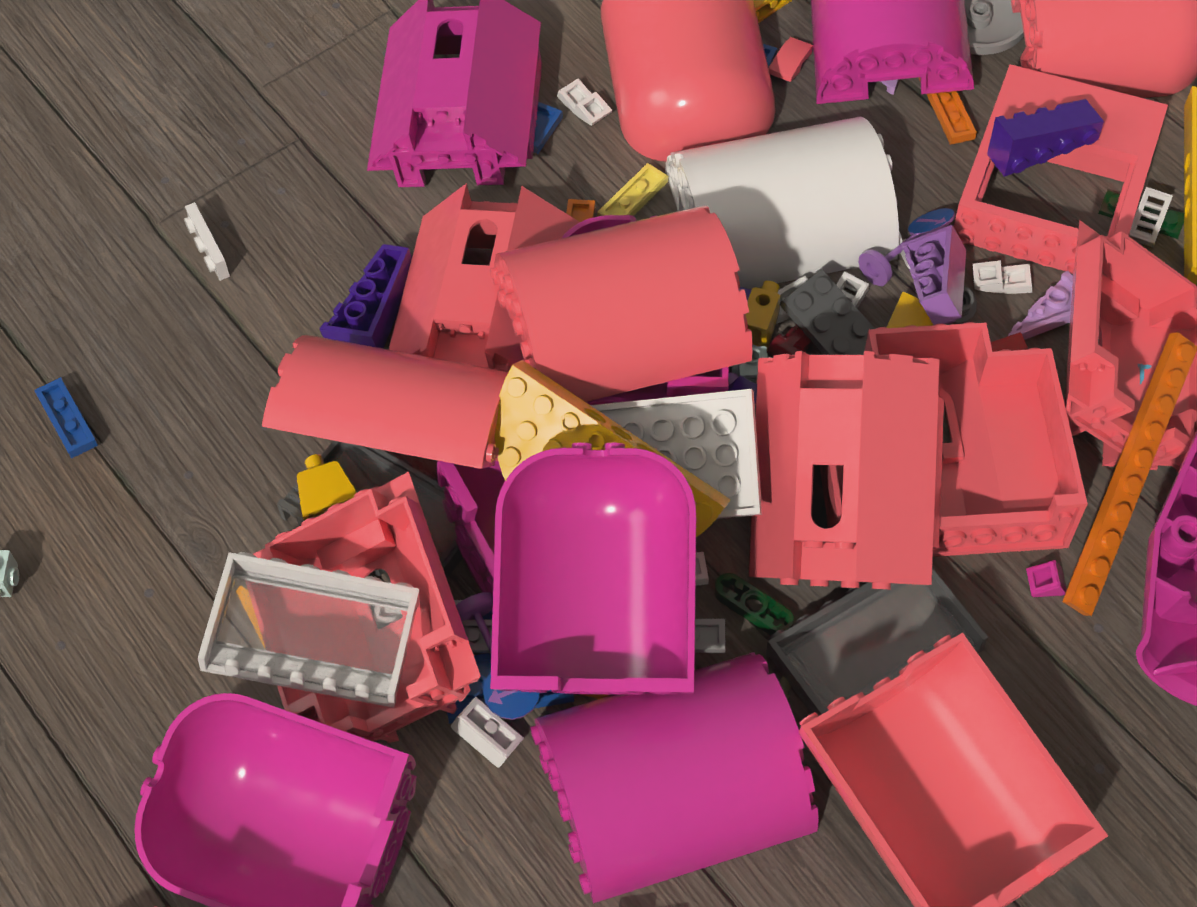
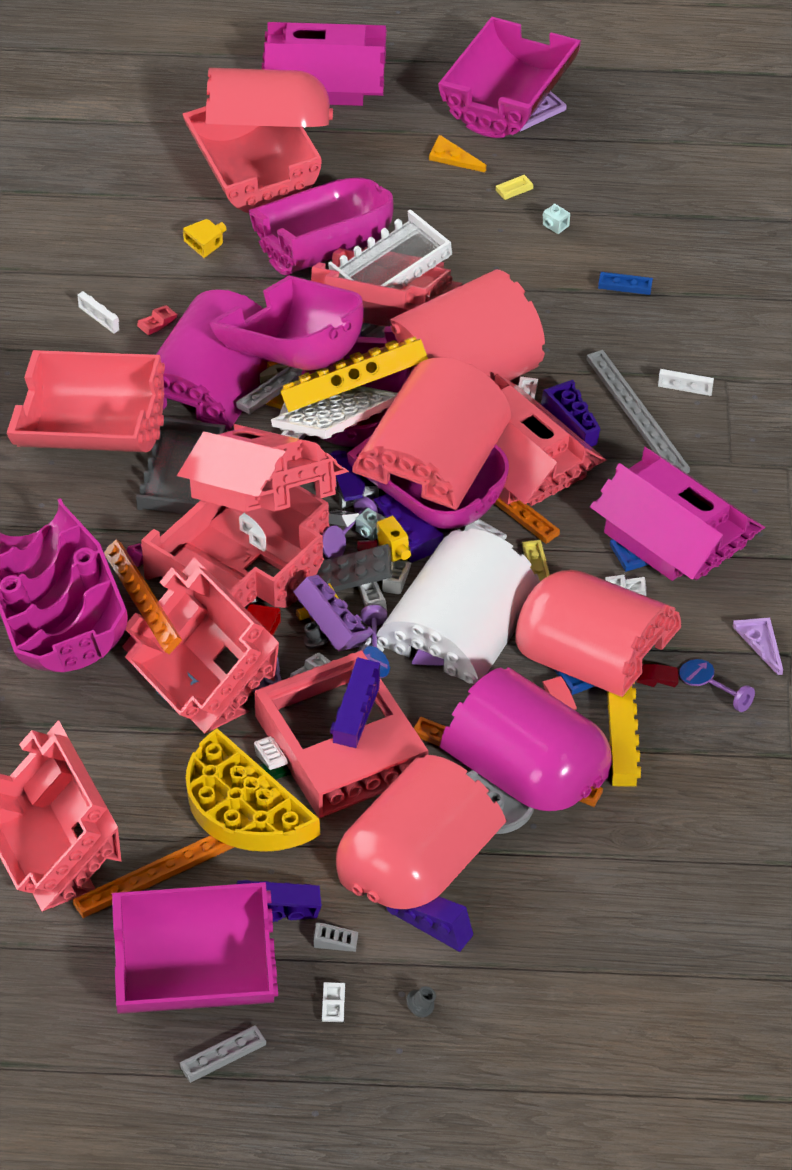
camera: 130 degrees right, 10 degrees down
(299, 261) = (635, 409): none -> light grey plate

